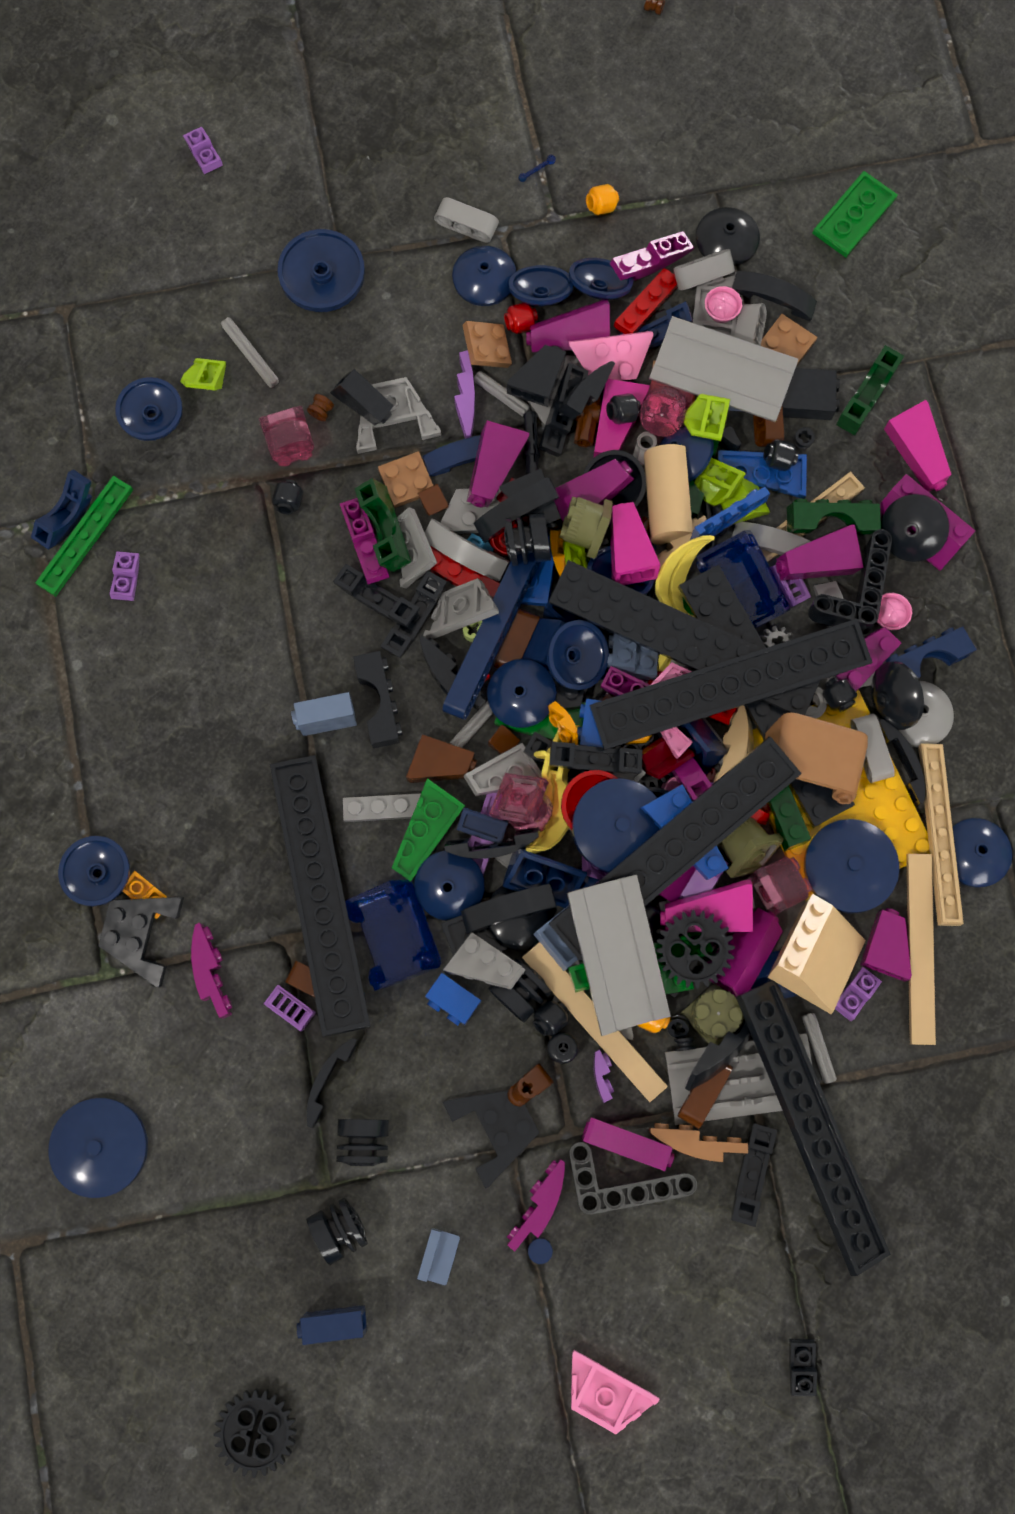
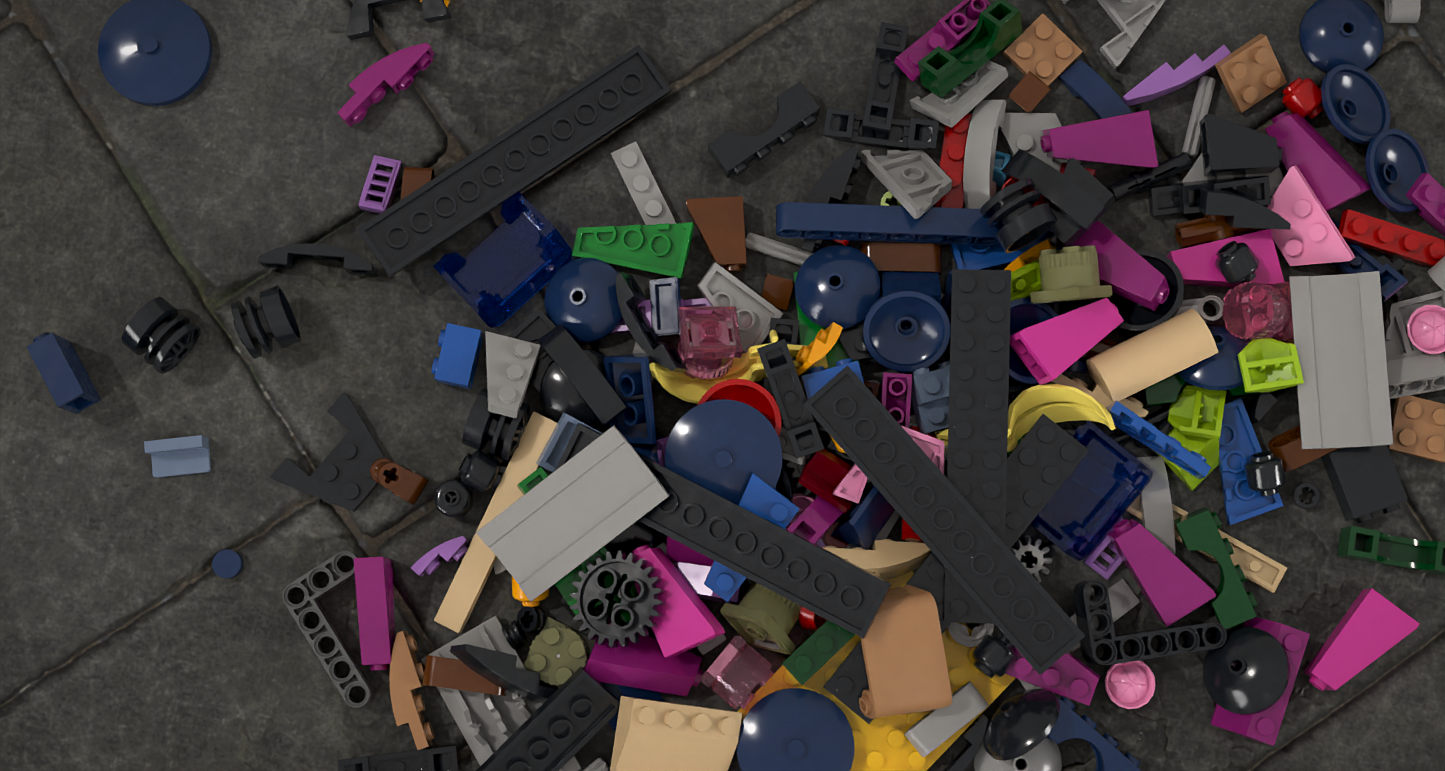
camera: 70 degrees right, 5 degrees up
(324, 714) = (719, 78): sand blue brick -> none
(546, 1197) = (283, 546): magenta slope -> none
(606, 1395) = (103, 695): bright pink wing -> none

